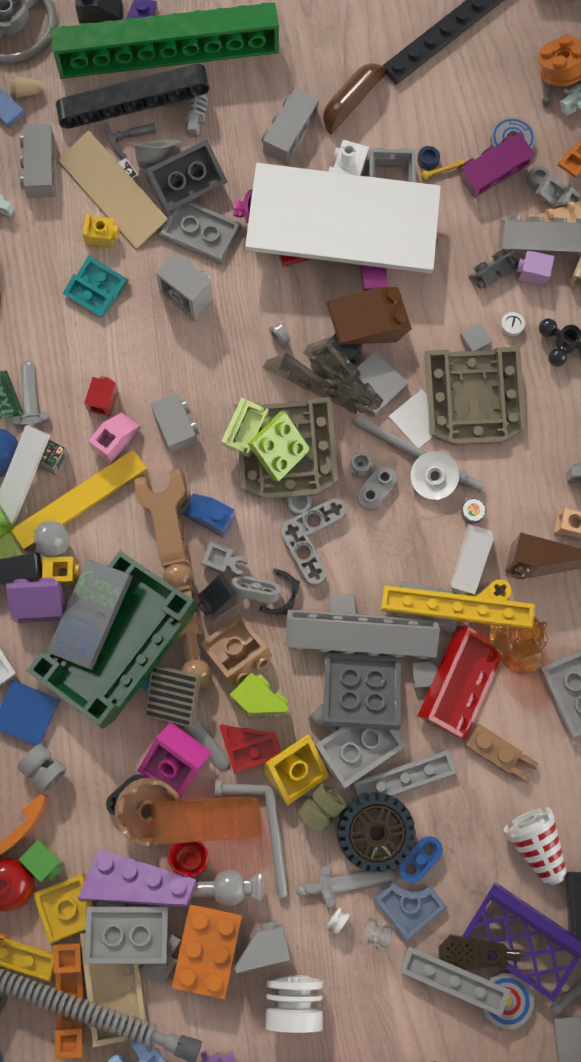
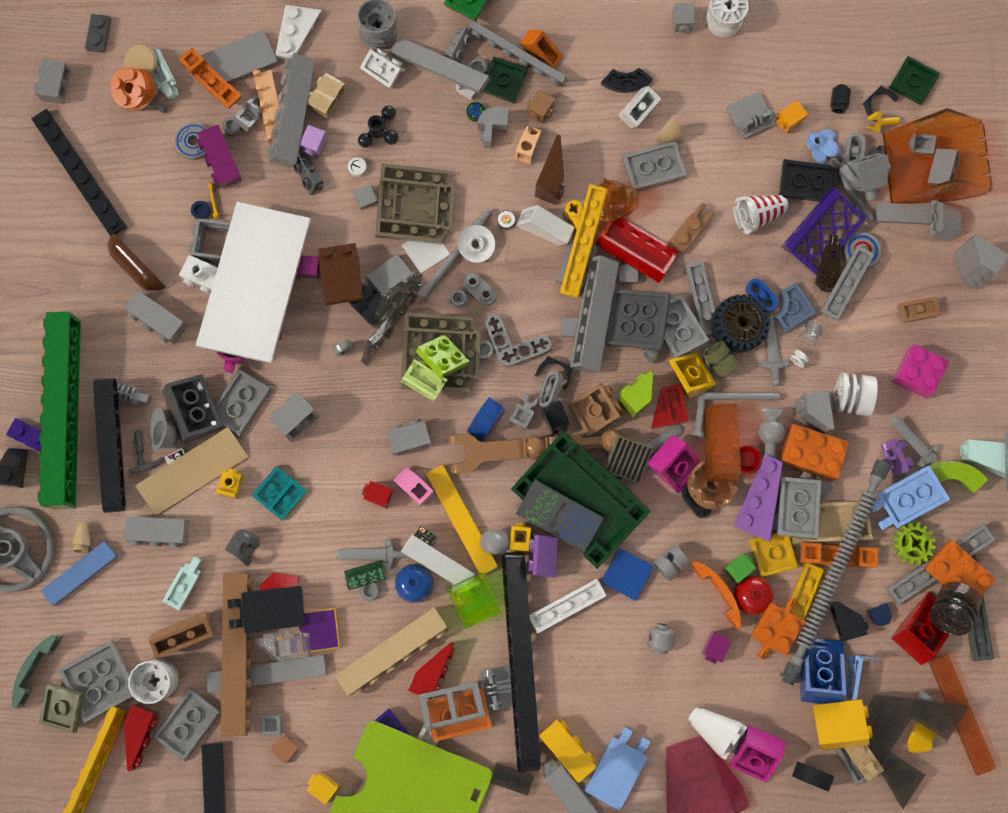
camera: 80 degrees left, 5 degrees up
(30, 255) = (237, 543): none -> dark grey helmet

